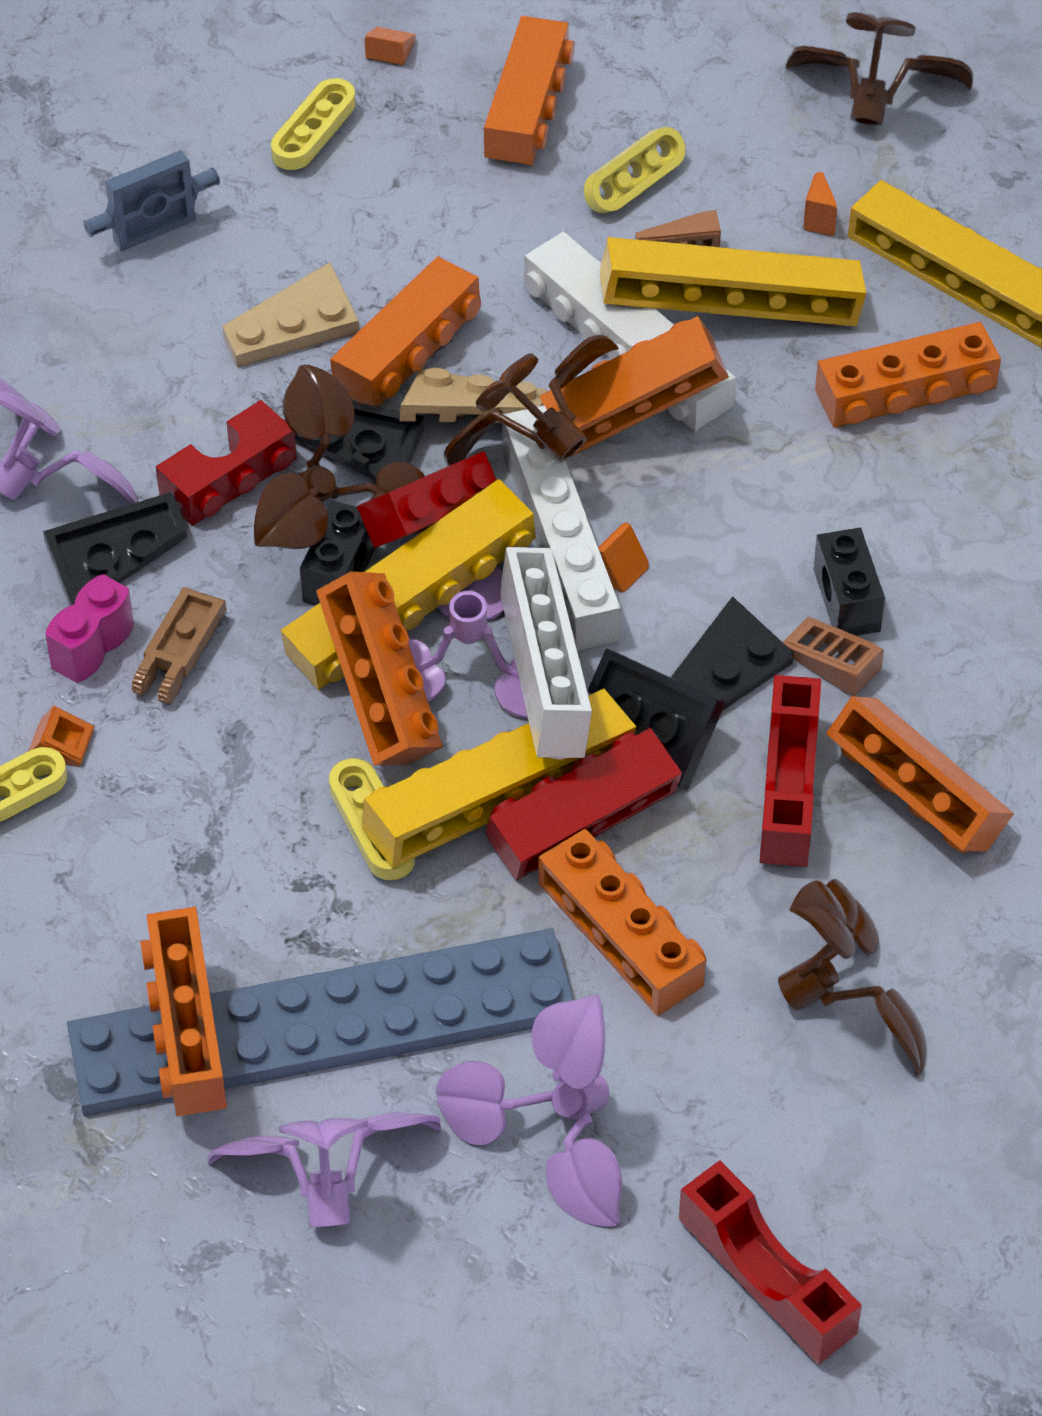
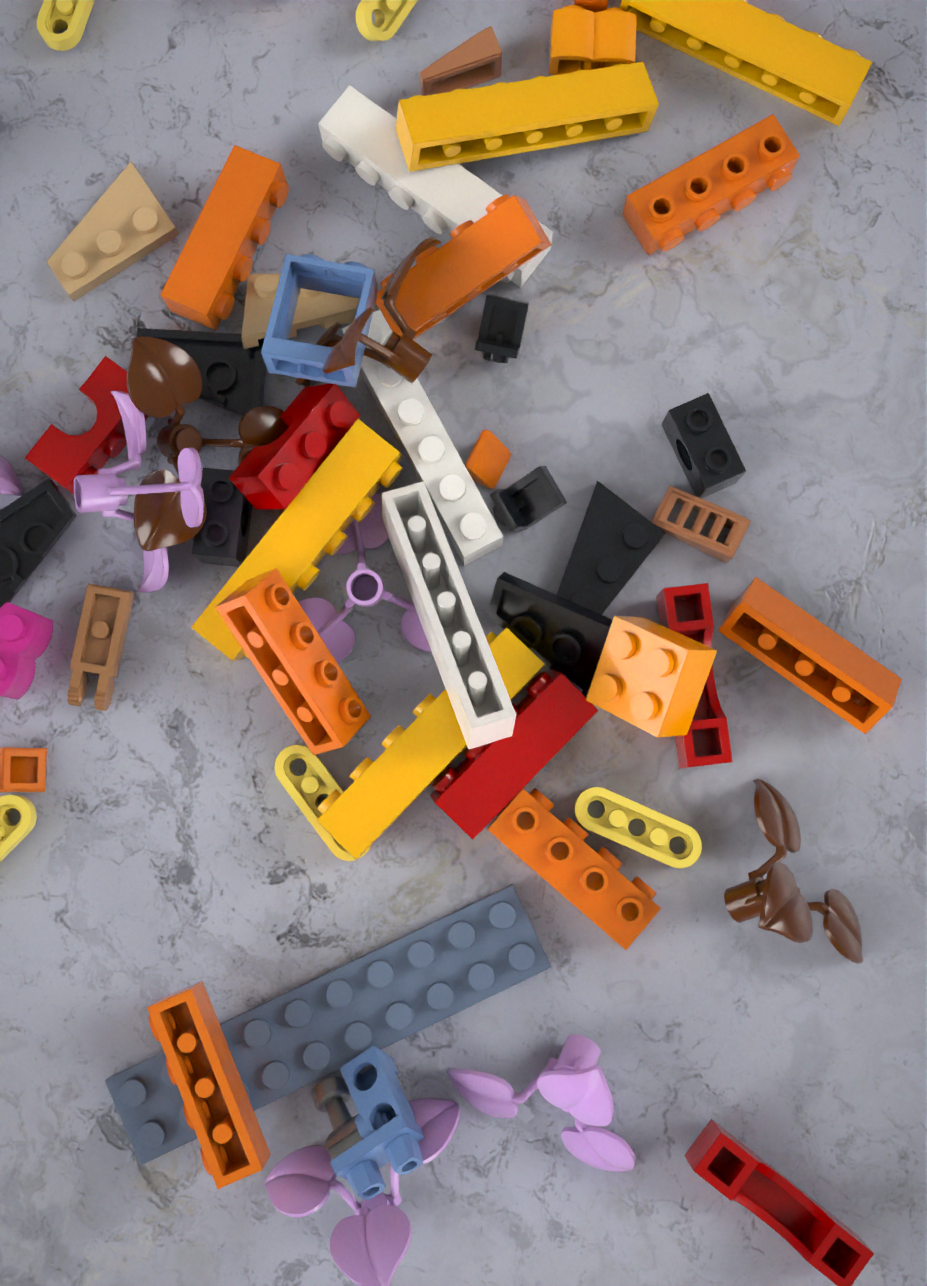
camera: 10 degrees left, 30 degrees up
(240, 483) = (107, 493): none -> lavender plant
(352, 1091) = (381, 1130): none -> medium blue hips
(456, 412) = (315, 274): none -> medium blue window
(656, 598) = (527, 500): none -> black bracket
(665, 453) = (501, 328): none -> black bracket
(689, 887) = (656, 833): none -> light yellow plate
(741, 737) = (650, 676): none -> light orange brick
(812, 235) = (591, 39): none -> light orange brick

